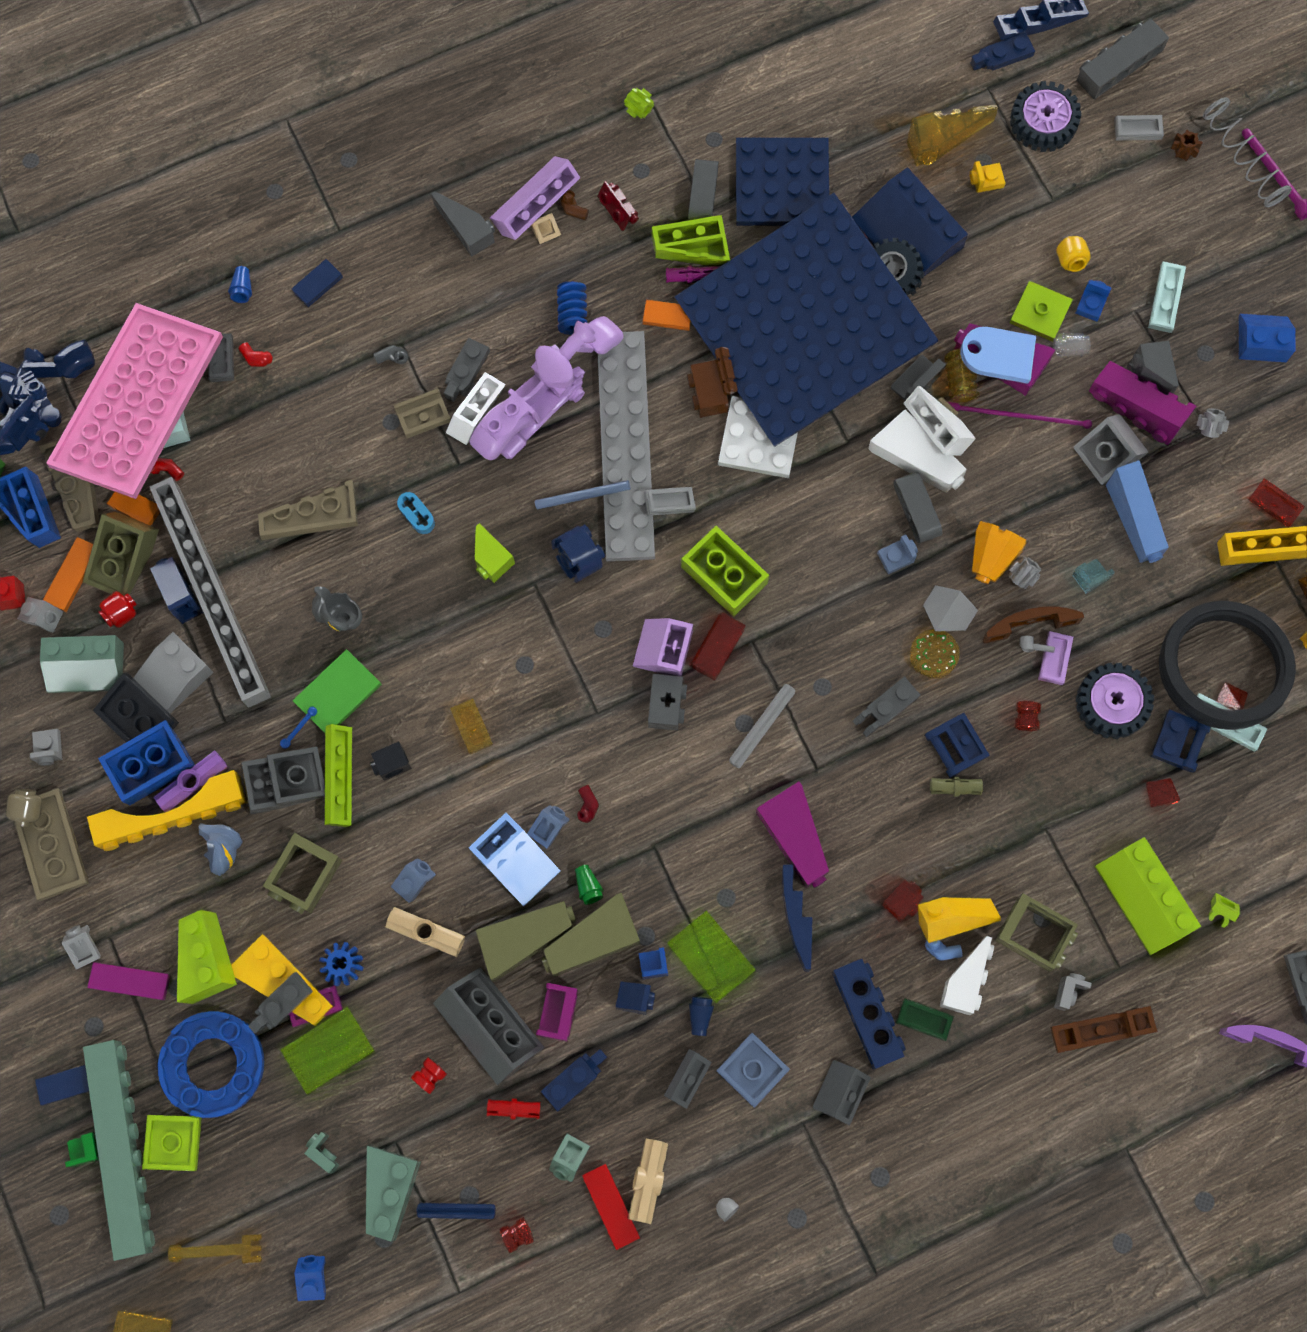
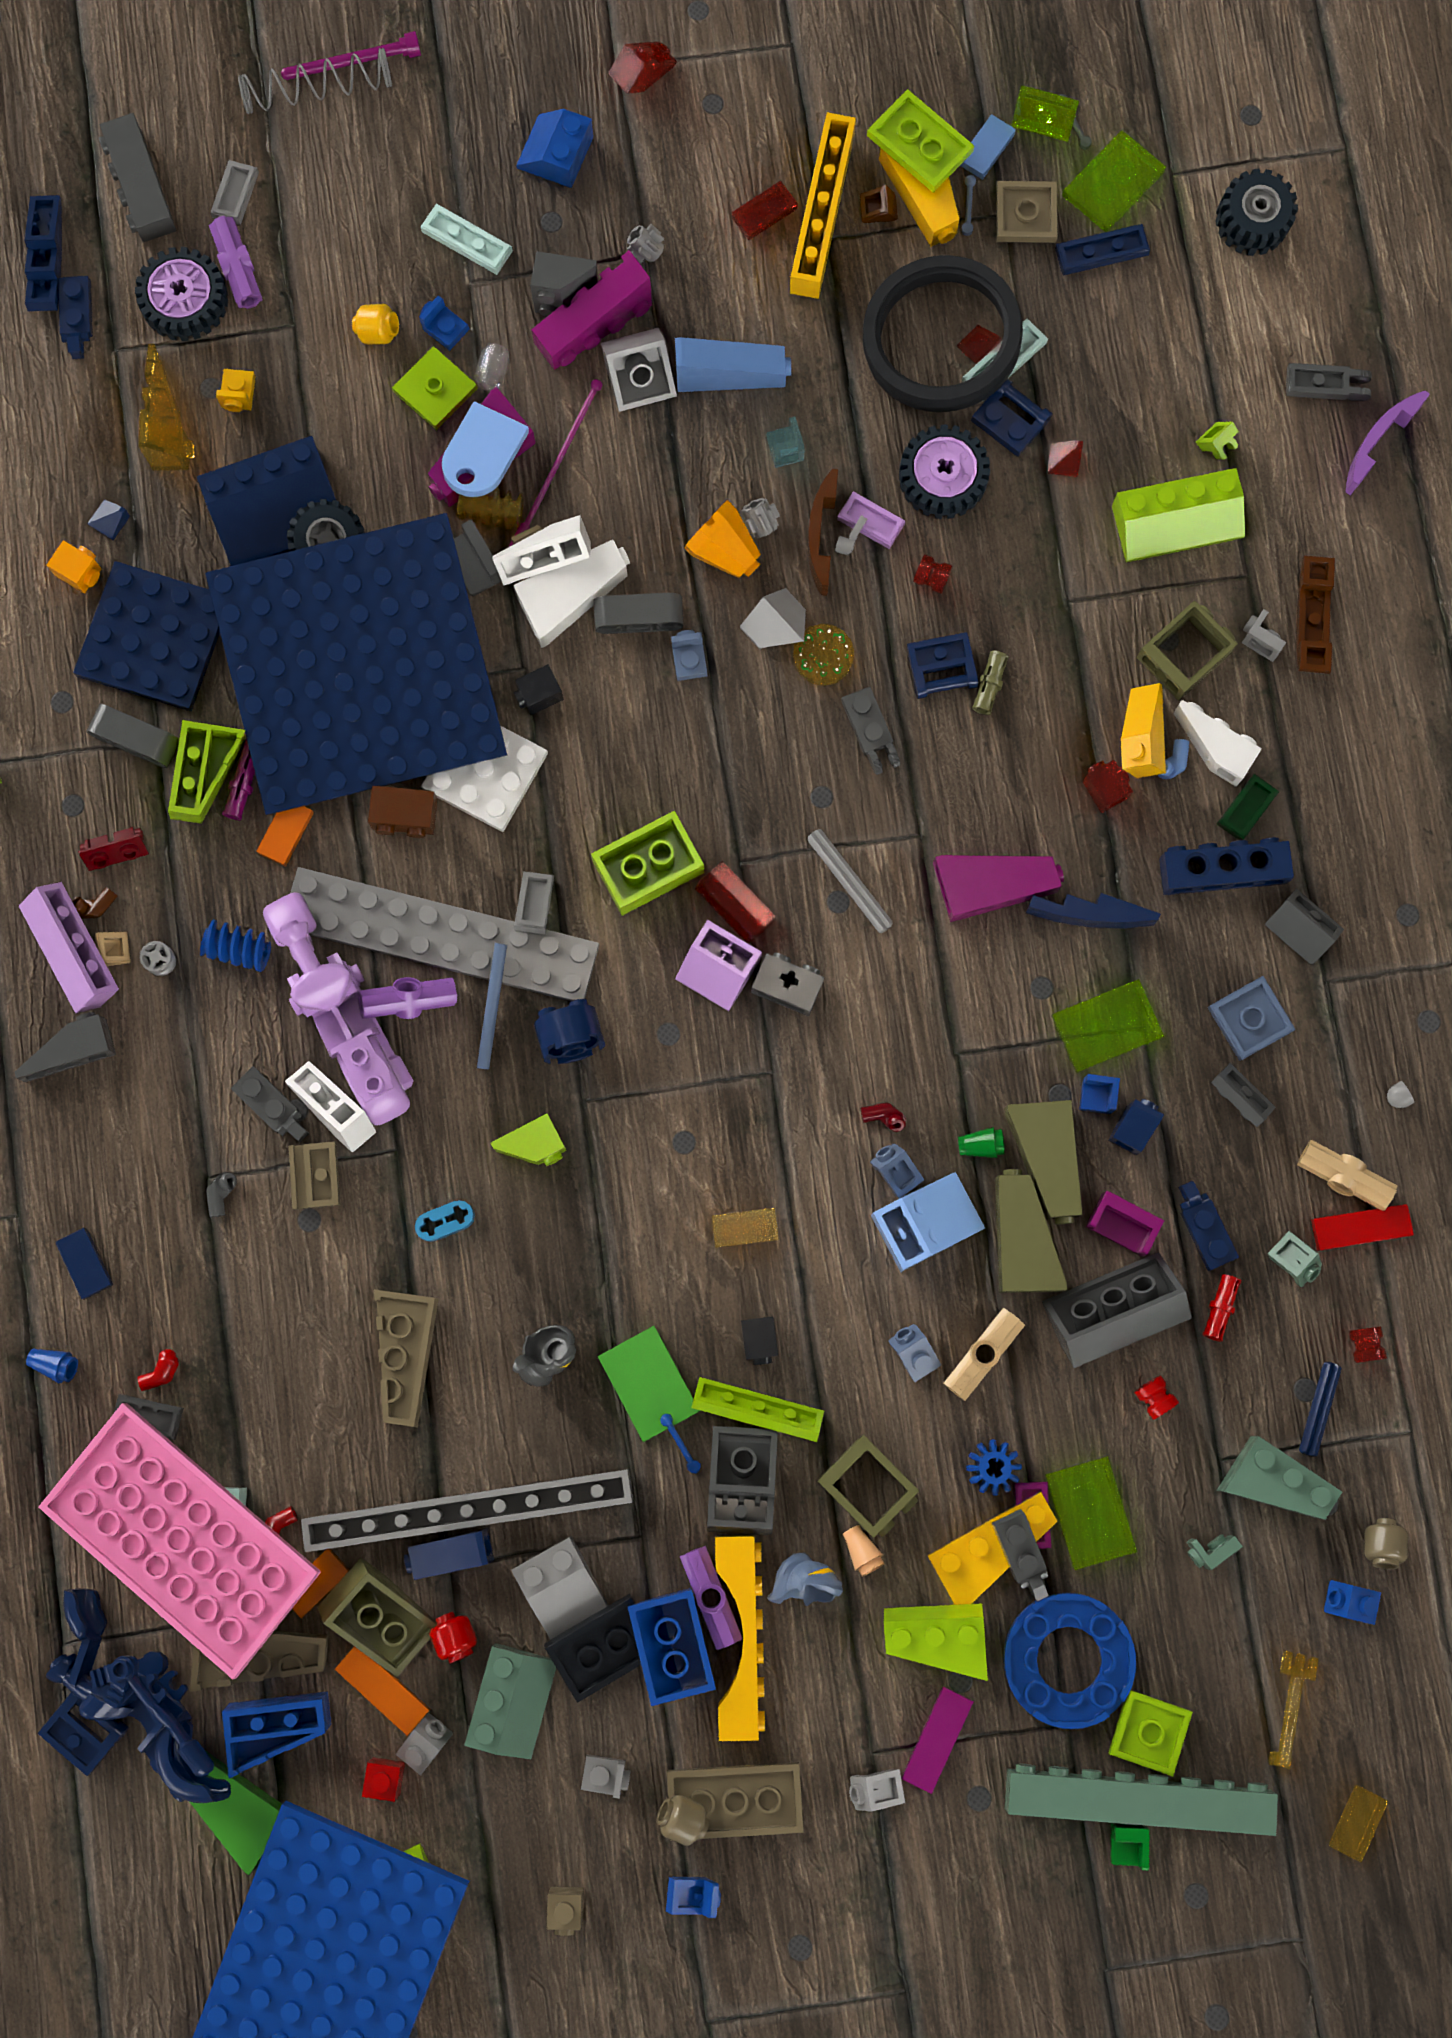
camera: 75 degrees left, 5 degrees up
(62, 1085) = (1042, 1852): dark blue tile -> none
(252, 885) = (863, 1552): none -> light nougat cone
(362, 1292) = (1386, 1544): none -> dark tan head
(543, 256) = (151, 955): none -> light grey wheel
(569, 433) = (407, 998): none -> medium lavender piece
(700, 1015) = (1171, 1057): dark blue cone -> none
(726, 370) = (391, 780): reddish brown axle -> none
(814, 113) = (75, 566): none -> light orange brick
(832, 454) = (538, 690): none -> black brick
(858, 125) = (109, 519): none -> dark blue slope
(1084, 144) = (235, 262): none -> medium lavender piece
(1186, 145) = (280, 145): reddish brown gear -> none

